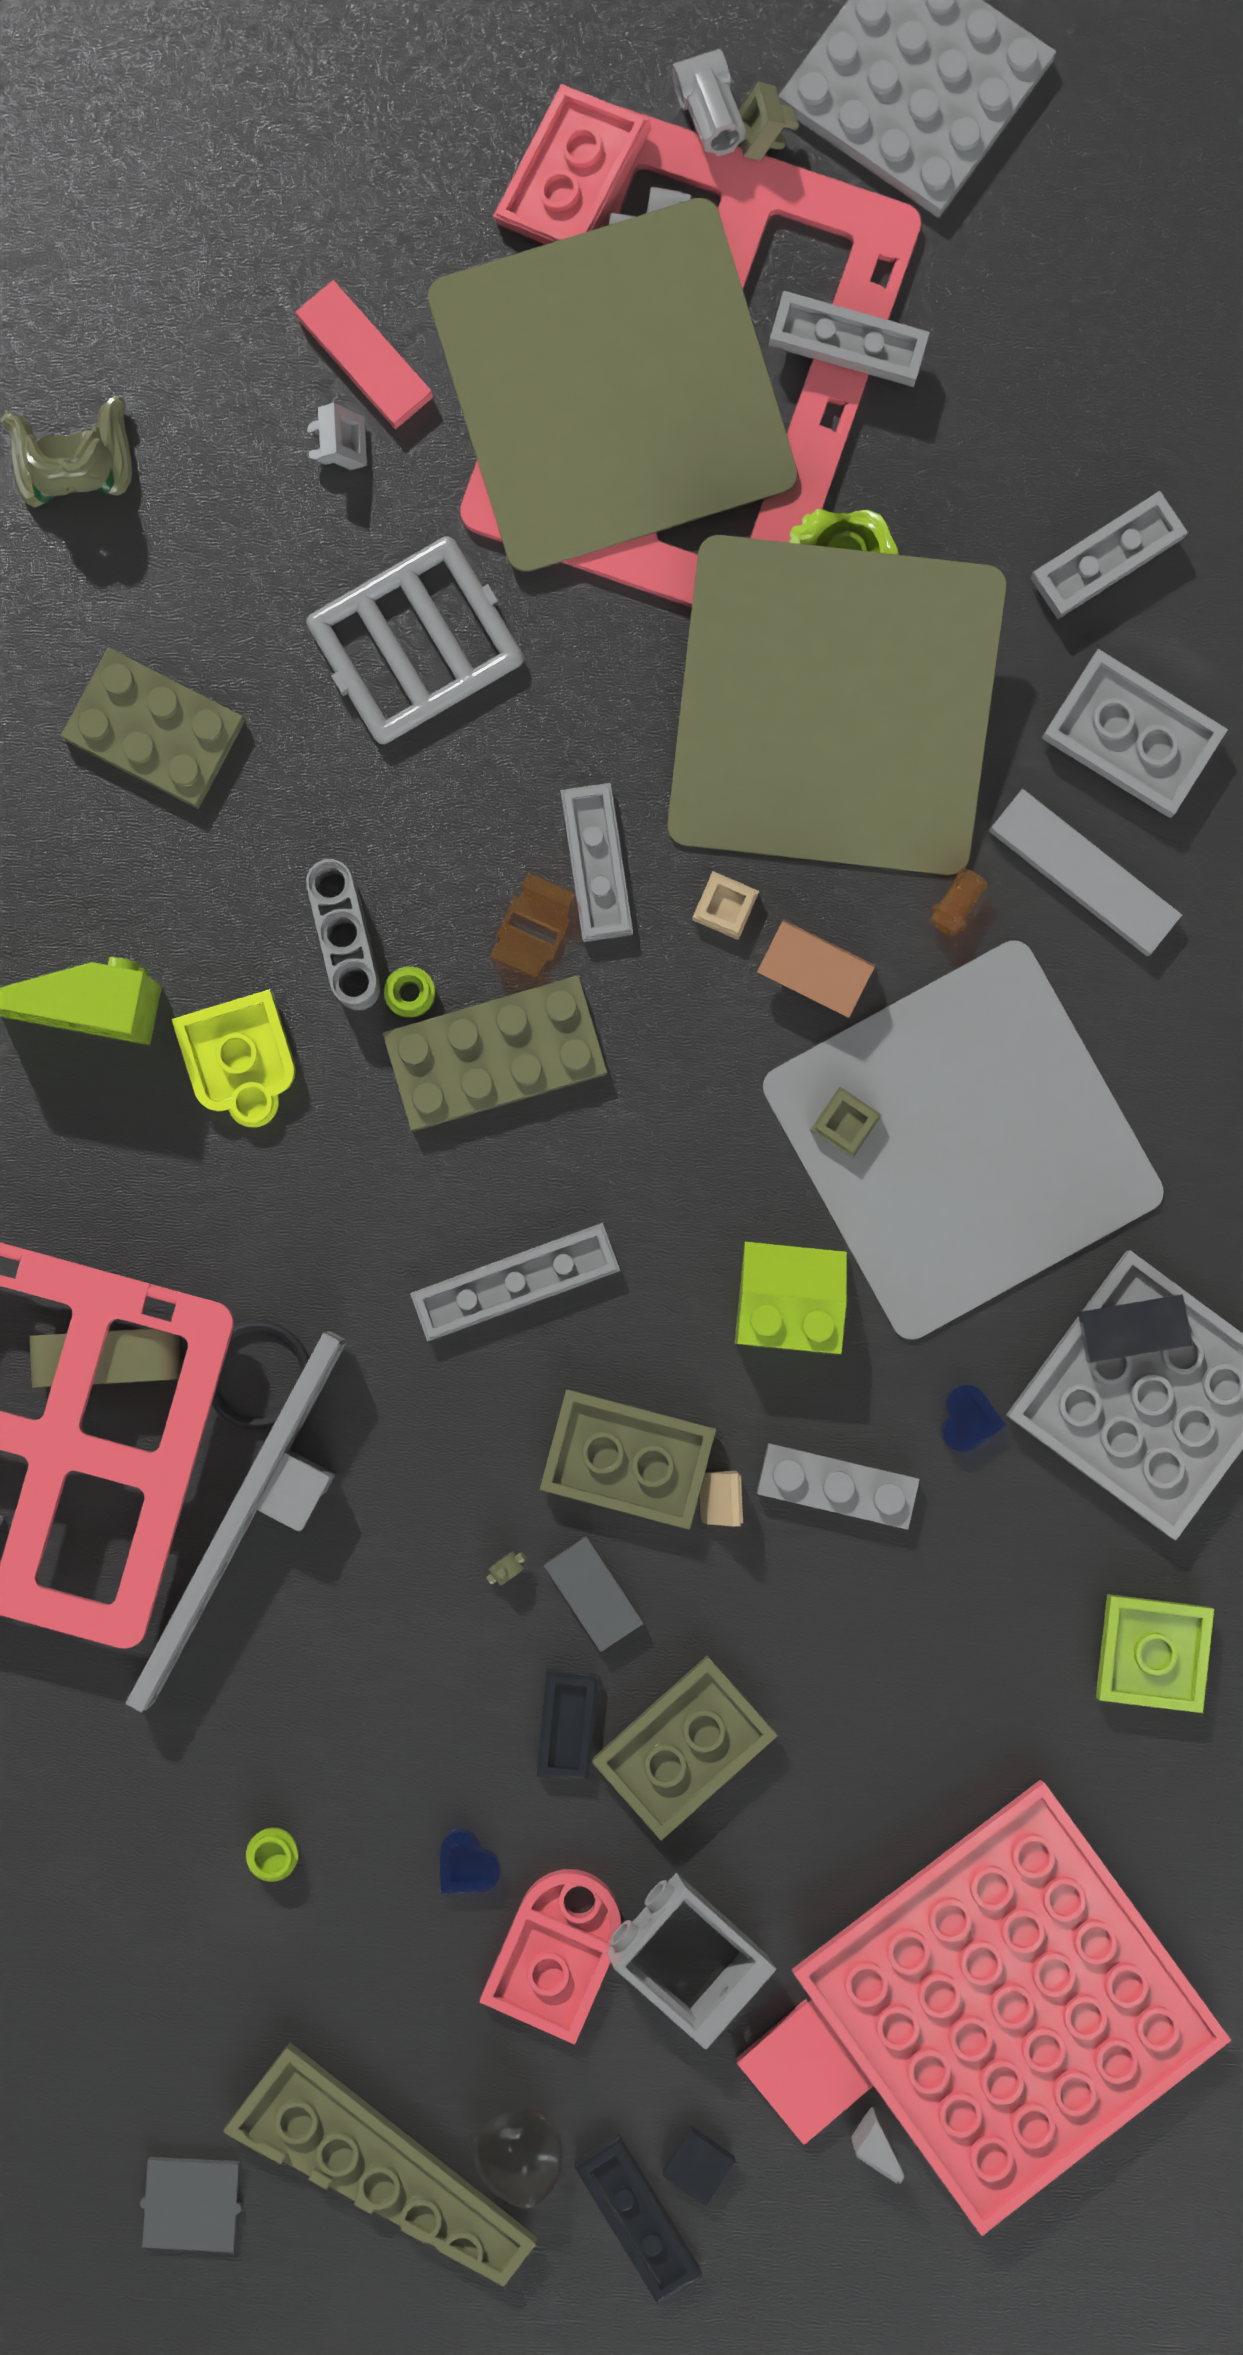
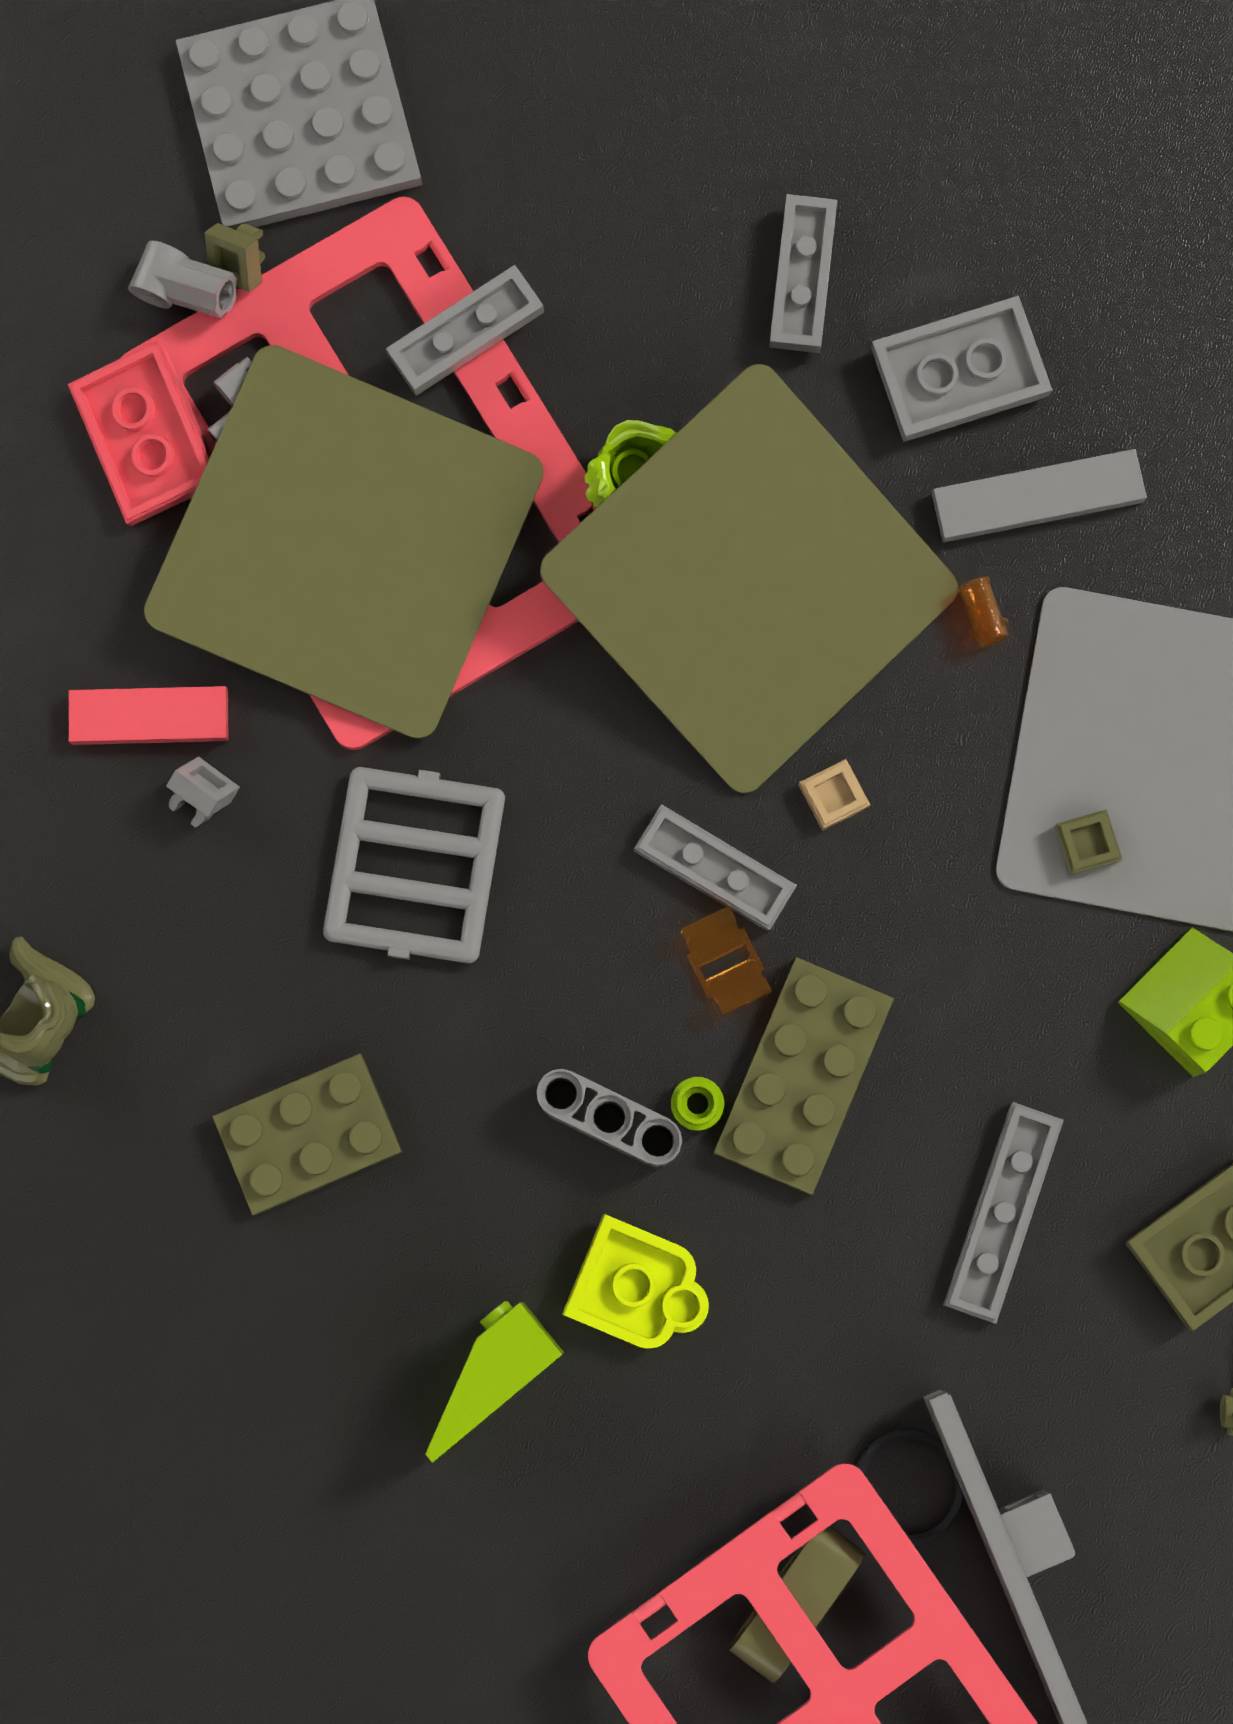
camera: 50 degrees left, 5 degrees down
(816, 968) = (946, 764): nougat hinge -> none

